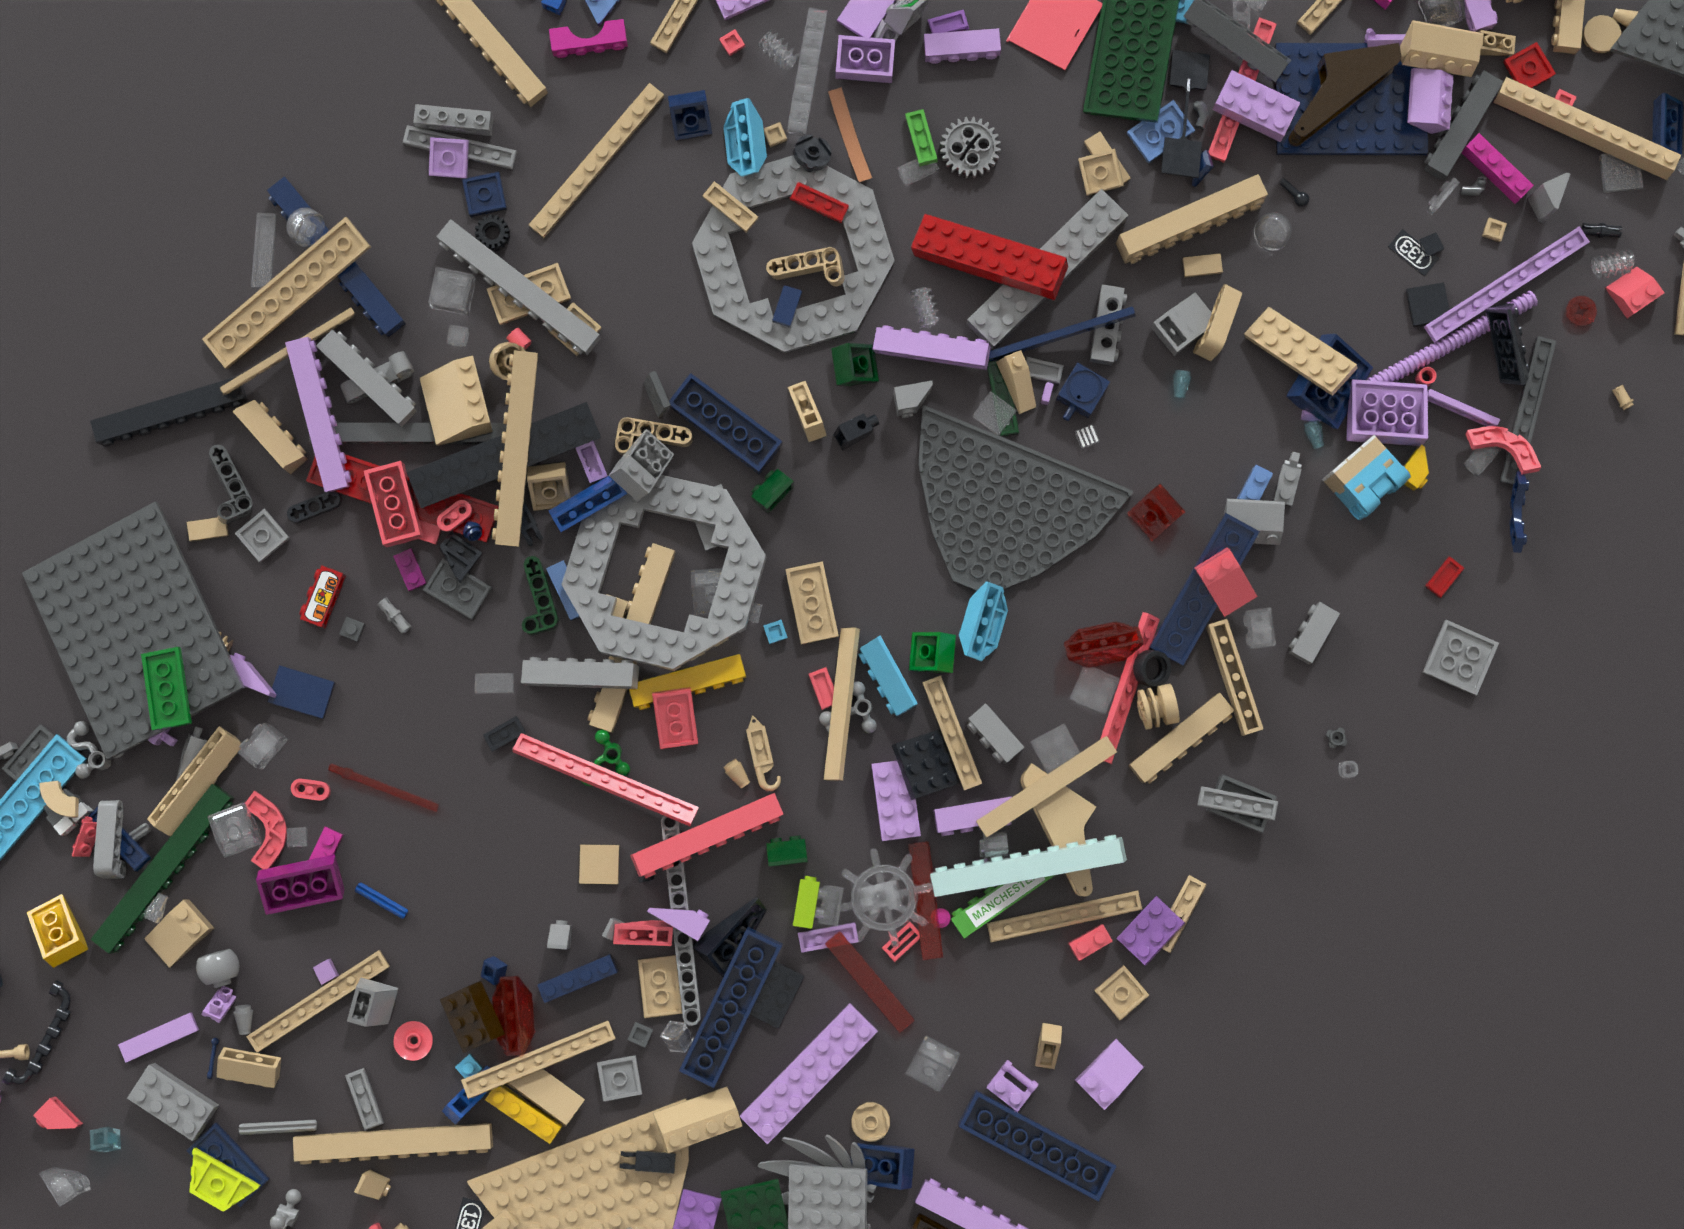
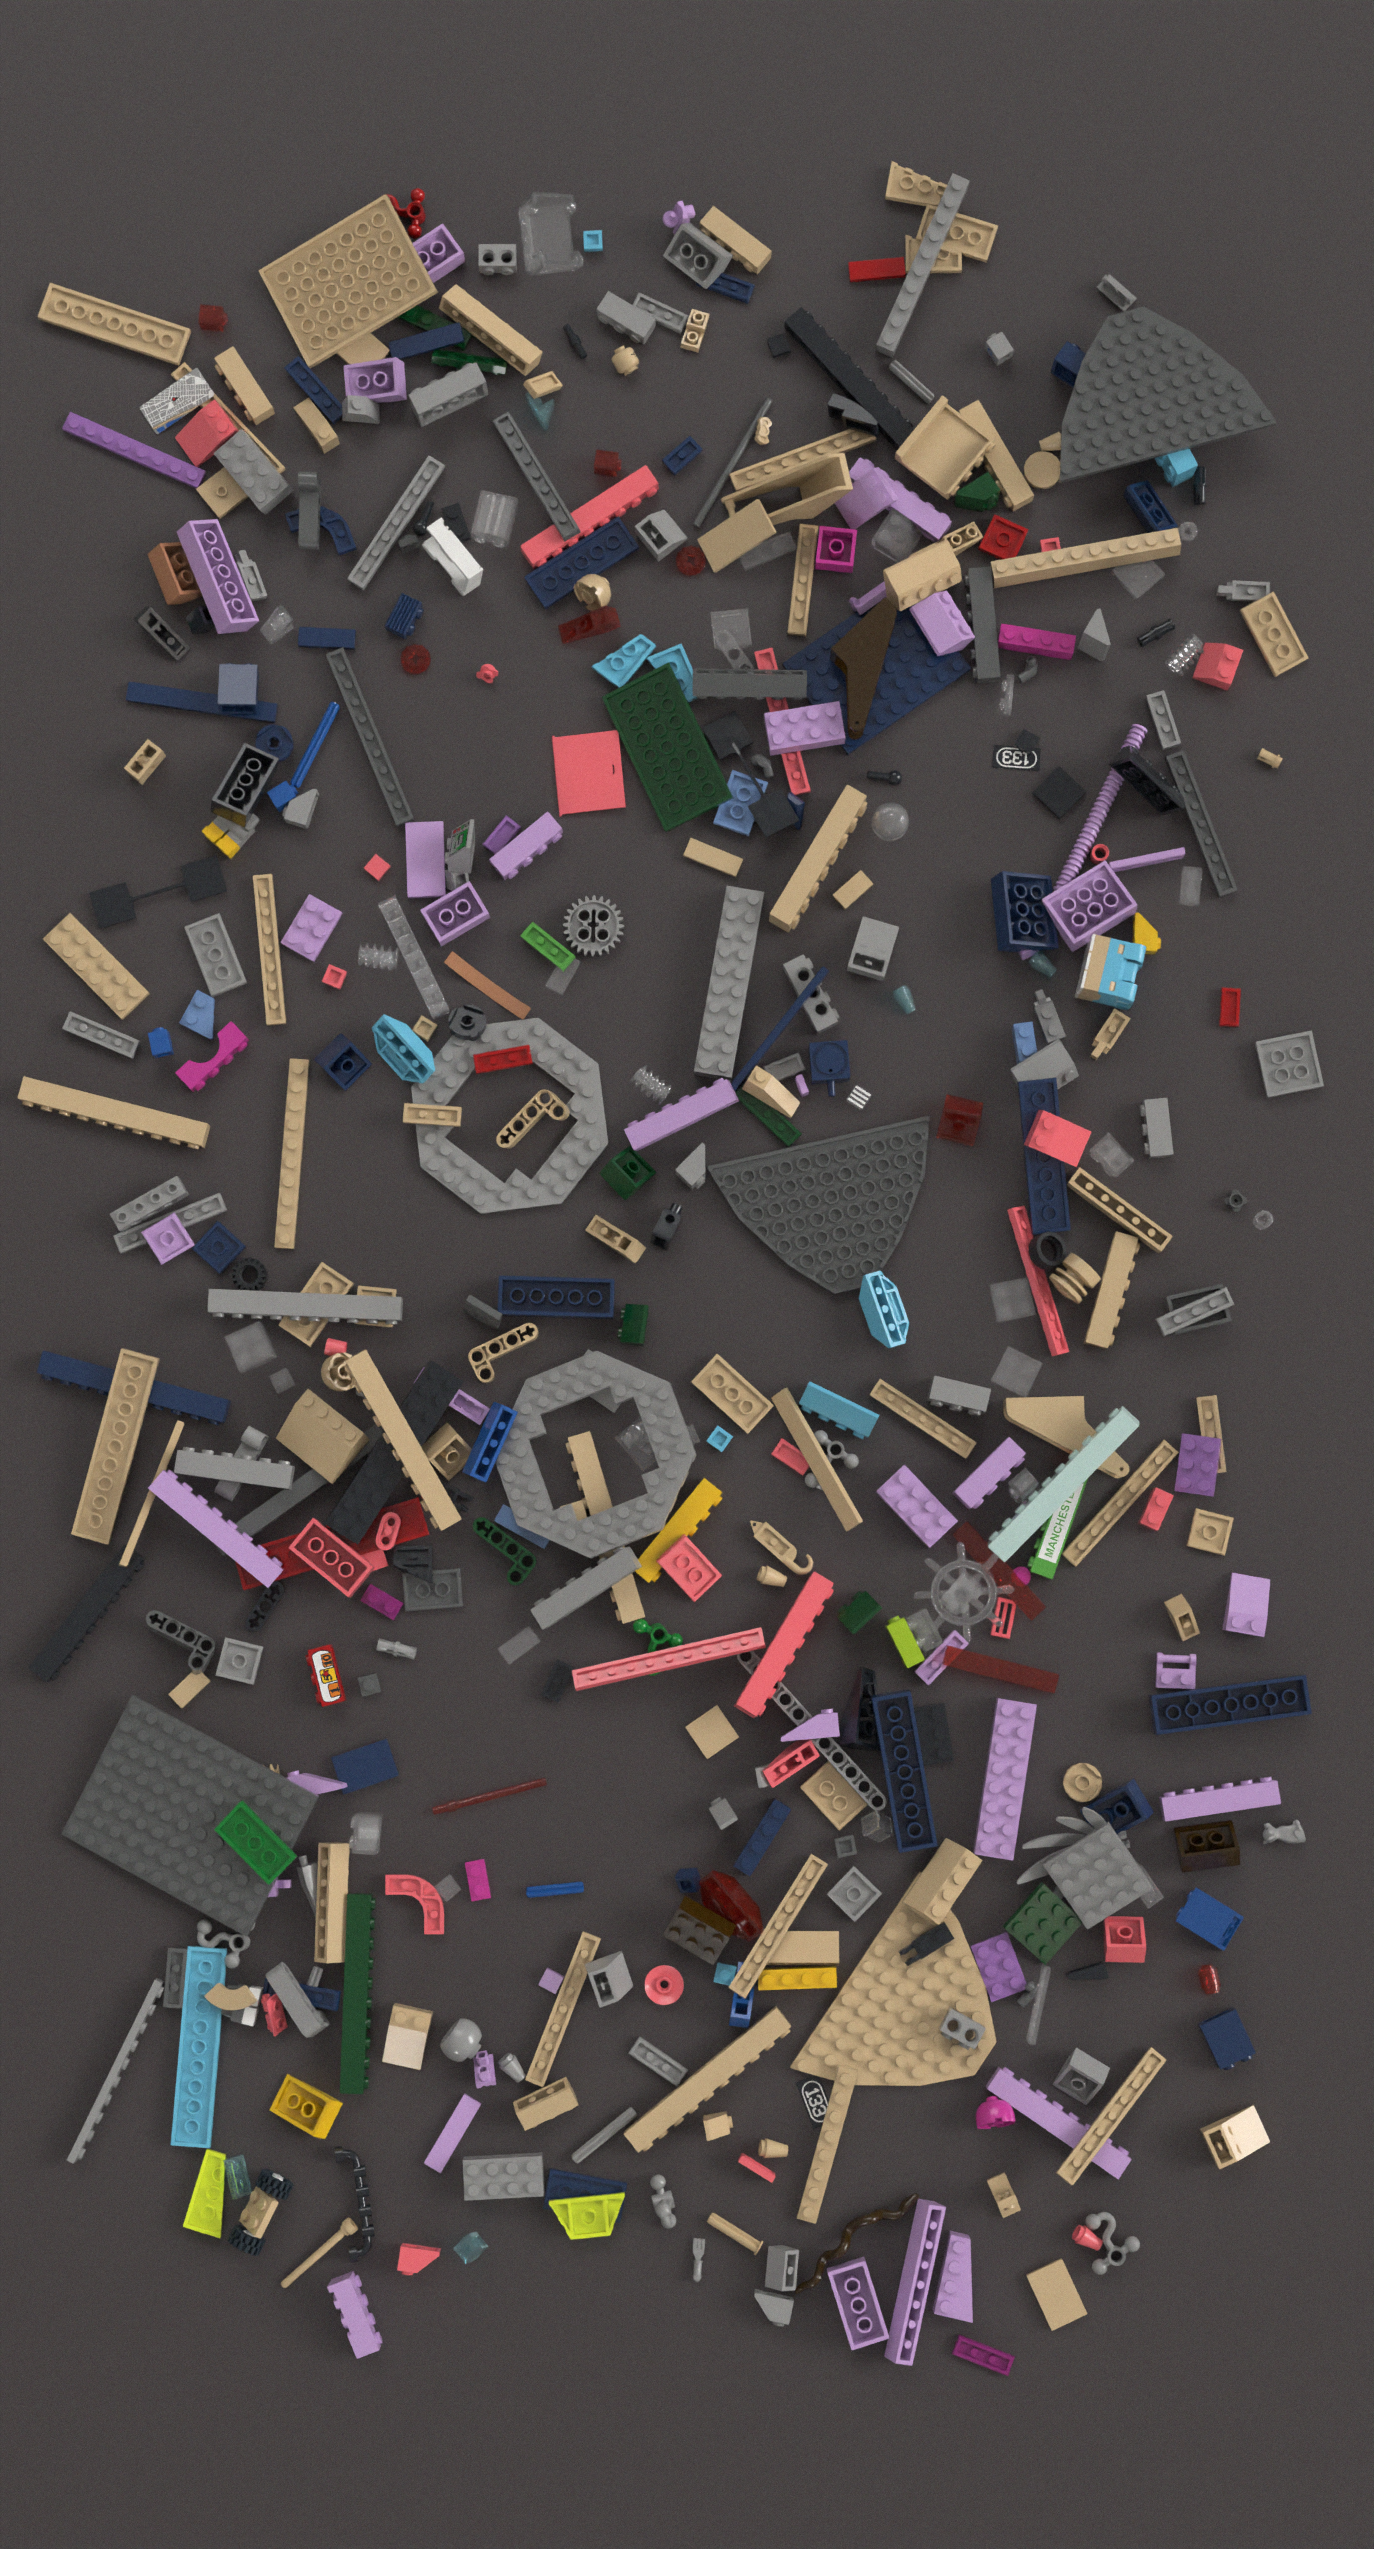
camera: 30 degrees left, 0 degrees up
(65, 1184) = (464, 2306): clear slope -> none
(156, 909) = (376, 2029): clear cone -> none
(214, 1041) = (501, 2103): dark blue hinge -> none
(234, 829) = (394, 1918): clear slope -> none
(263, 249) = (68, 1423): clear tile -> none
(271, 436) = (188, 1573): tan slope -> none
(300, 884) = (480, 1924): magenta brick -> none
(305, 226) = (91, 1380): clear cylinder -> none
(311, 789) = (431, 1841): coral plate -> none
(472, 531) = (412, 1533): dark blue plate -> none
(641, 465) = (513, 1380): light grey slope -> none
(787, 306) = (537, 1164): dark blue tile -> none
(925, 764) = (920, 1460): black plate -> none
(932, 652) = (859, 1364): green slope -> none
(933, 1063) = (1099, 1699): clear slope -> none
(990, 256) = (676, 1006): red brick -> none
(994, 413) = (770, 1132): clear piece -> none
(1046, 786) = (1032, 1408): tan tile -> none
(1101, 172) = (715, 871): tan tile -> none
(1103, 644) = (993, 1258): clear red wedge -> none
(1219, 323) = (901, 928): tan beam -> none
(1300, 351) = (983, 905): tan plate -> none
(1329, 528) = (1109, 1033): none -> tan hinge
(1494, 229) = (1069, 693): tan tile -> none
(1500, 437) = (1196, 861): coral plate -> none
(1506, 284) = (1111, 732): lavender plate -> none
(1517, 534) = (1244, 902): dark blue plate -> none
(1534, 16) = (978, 495): none -> dark green slope
(1556, 305) = (1163, 720): none -> light grey plate
(1584, 303) = (1184, 702): clear red gear -> none

